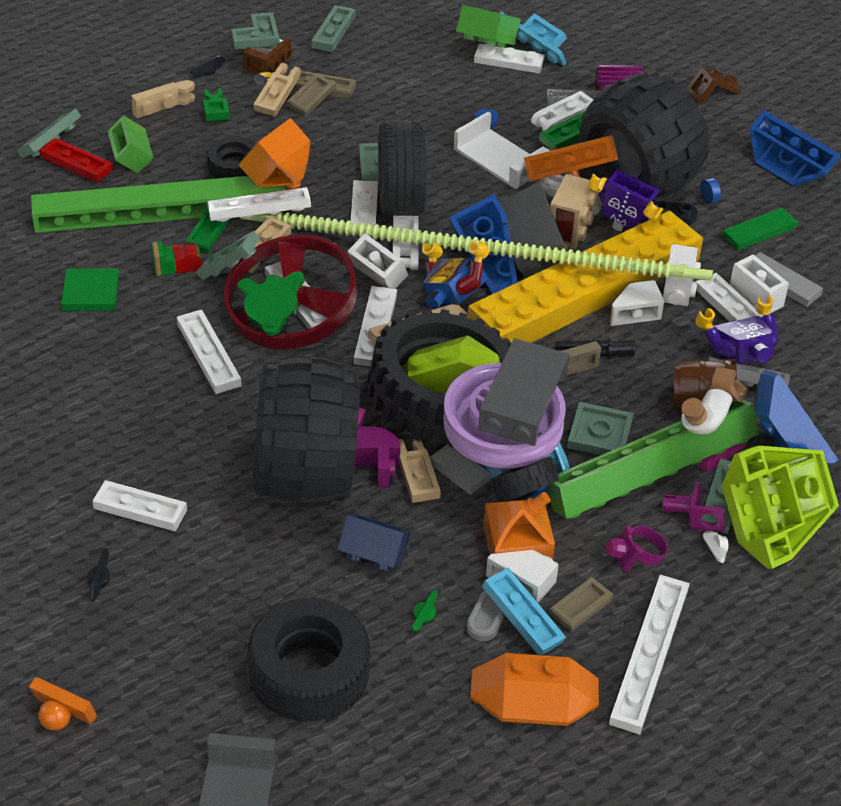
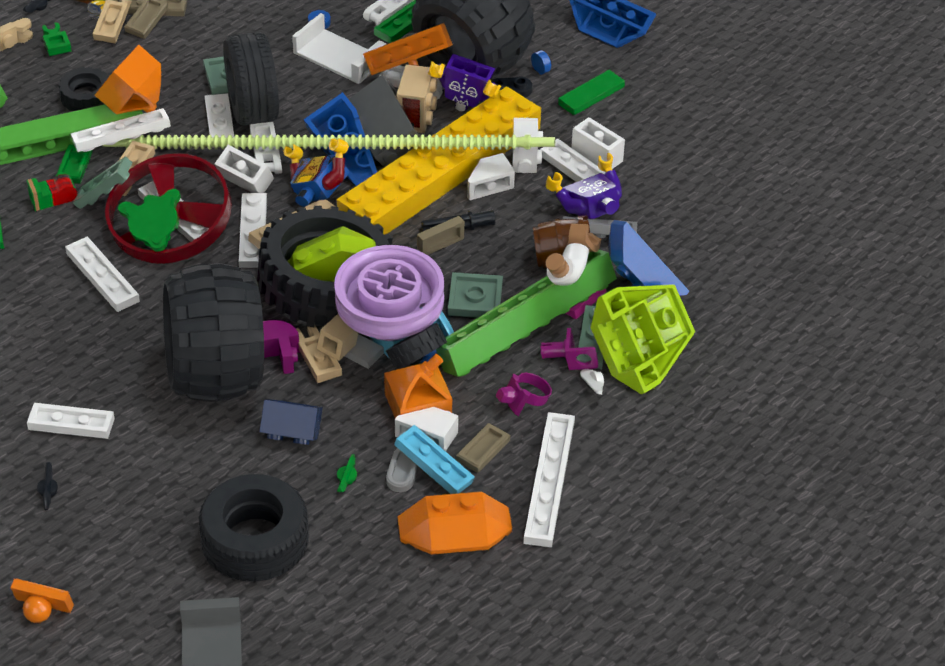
camera: 10 degrees left, 0 degrees up
(440, 458) = (337, 338): none -> tan brick
(522, 391) = (403, 268): dark grey panel -> none
(799, 287) = (635, 142): light grey tile -> none

